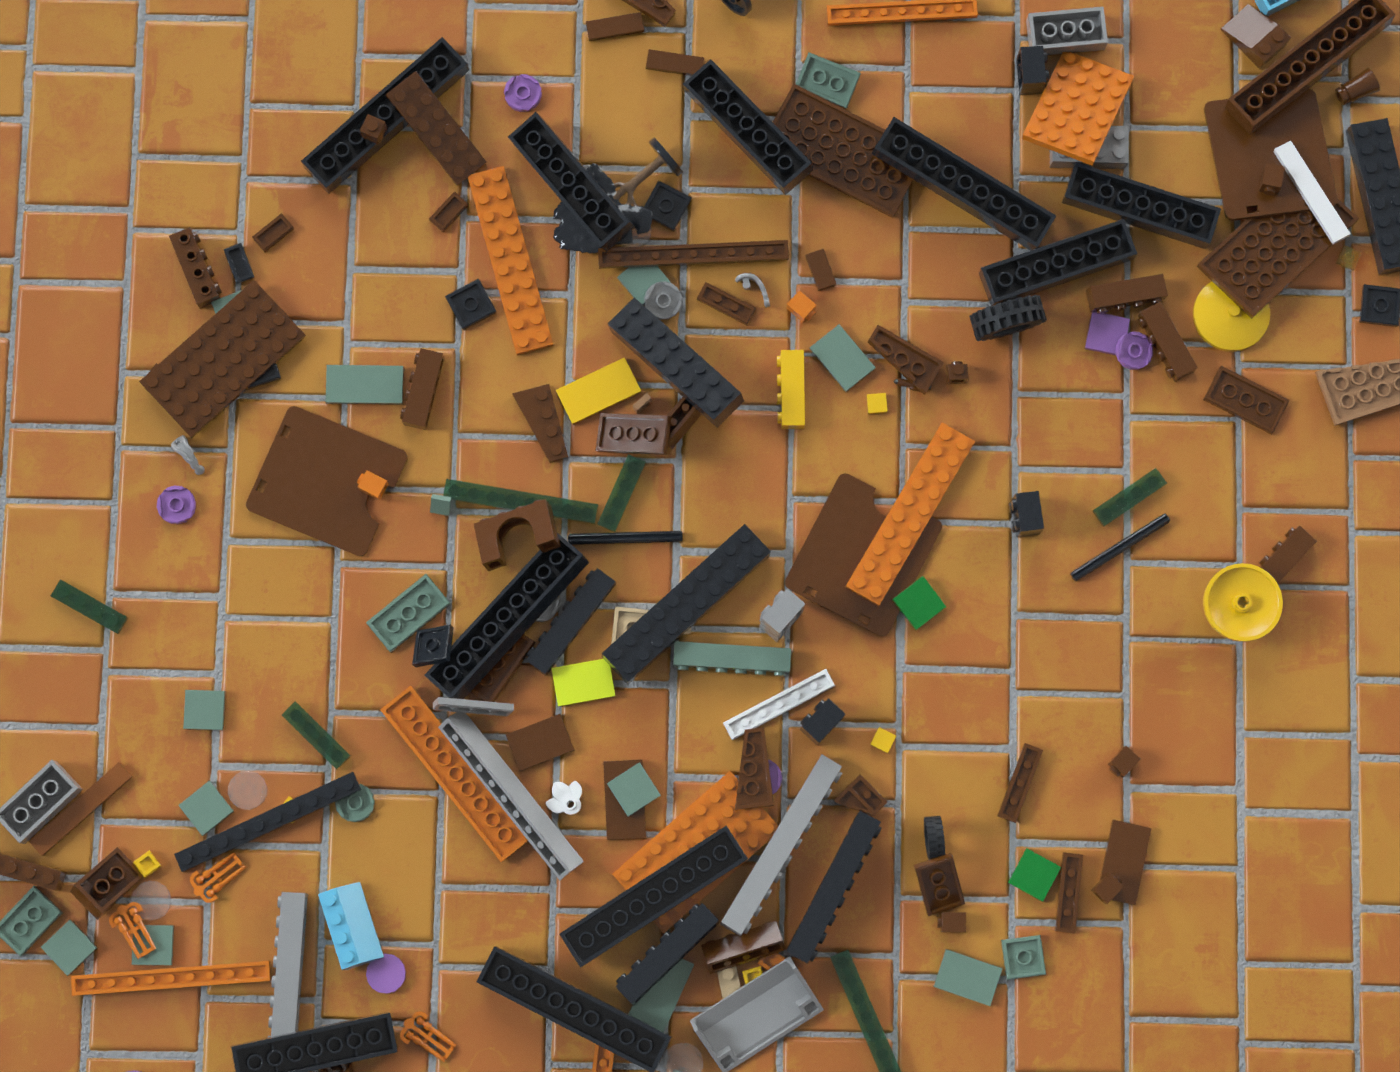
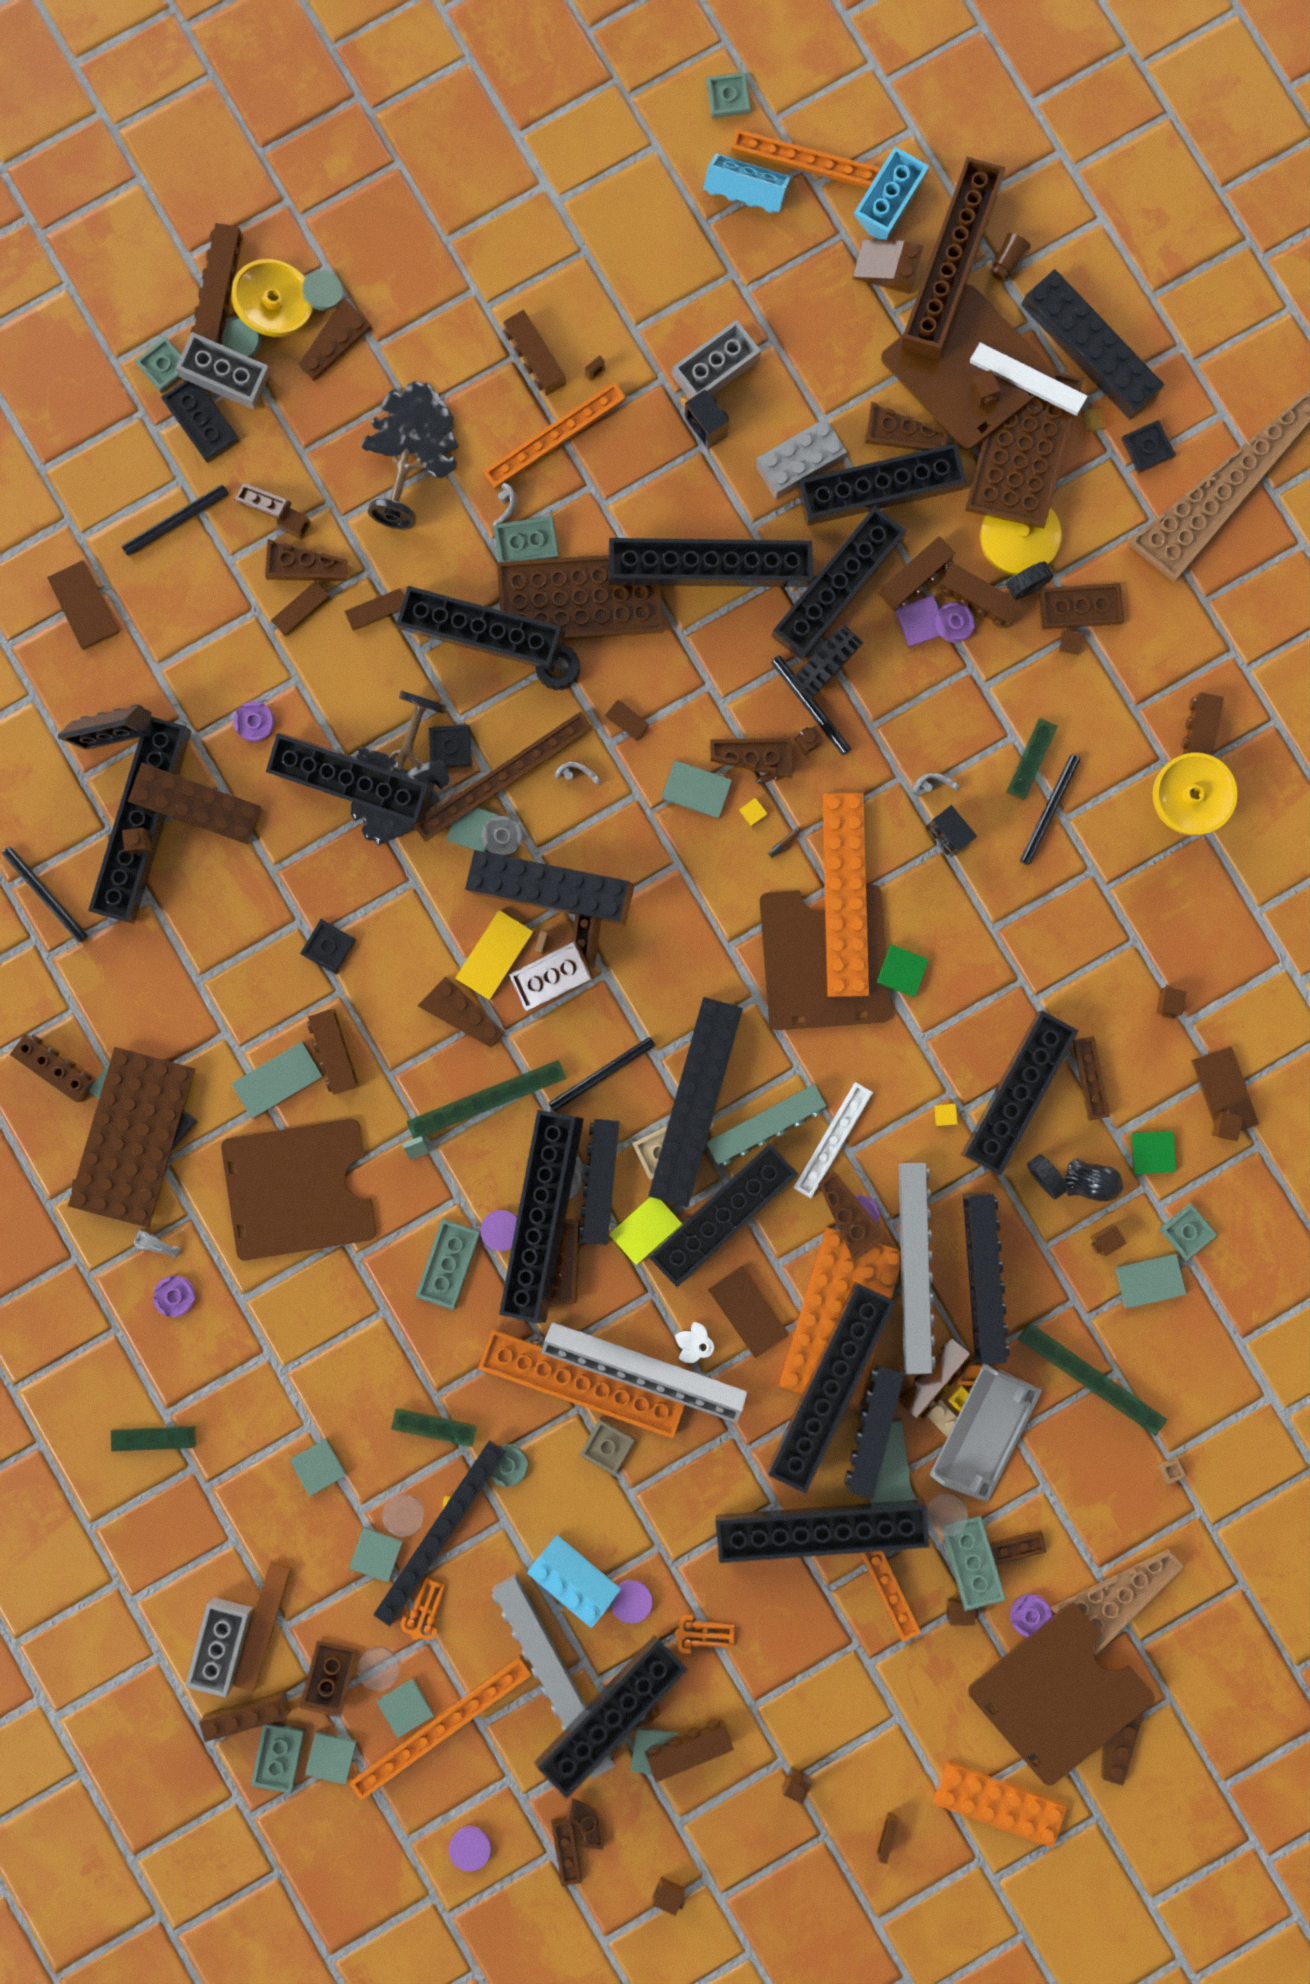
camera: 30 degrees left, 5 degrees up
(123, 910) = (358, 1695): orange piece -> none
(147, 864) = (354, 1638): yellow tile -> none
(238, 263) = (91, 1039): black tile -> none
(273, 127) = (44, 894): none -> black axle
(273, 232) = (105, 991): reddish brown tile -> none
(372, 485) = (342, 1168): orange brick -> none
(406, 29) = (108, 728): none -> black slope
(433, 646) = (489, 1282): black tile -> none
(444, 837) = (607, 1446): none -> dark tan tile
(448, 212) = (254, 873): reddish brown tile -> none
(465, 610) = (499, 1230): none -> medium lavender tile
(473, 706) = (561, 1315): light grey tile -> none
(491, 531) = (478, 1144): reddish brown arch -> none
(510, 260) = (339, 884): orange plate -> none
(539, 742) = (640, 1307): reddish brown tile -> none
(621, 493) = (573, 1036): clear green plate -> none
(633, 789) = (751, 1298): sand green tile -> none
(652, 707) = (722, 1215): none -> black brick
(726, 303) = (560, 803): reddish brown tile -> none
(780, 616) = (790, 1061): light grey brick -> none
(792, 208) = (568, 678): none -> black tyre
(792, 389) = (669, 846): yellow brick -> none
(801, 307) = (631, 765): orange brick -> none
(822, 721) = (882, 1133): black brick -> none
(831, 35) = (504, 496): none -> light grey piece
(861, 797) = (958, 1178): reddish brown wing -> none
(886, 444) = (783, 845): none -> piece
(939, 884) = (1077, 1215): reddish brown tile -> none
(953, 757) = (1019, 1092): none -> black brick
(972, 867) = (1093, 1181): none -> black piece
(977, 353) = (812, 707): none -> black axle
(1030, 468) = (926, 787): none -> light grey piece
(1068, 892) = (1194, 1150): reddish brown plate -> none
(1078, 107) = (770, 428): orange plate -> none
(1183, 172) = (901, 431): none -> reddish brown wing
(1214, 353) = (1030, 580): none -> black tyre
(1220, 423) = (1070, 642): none -> reddish brown tile

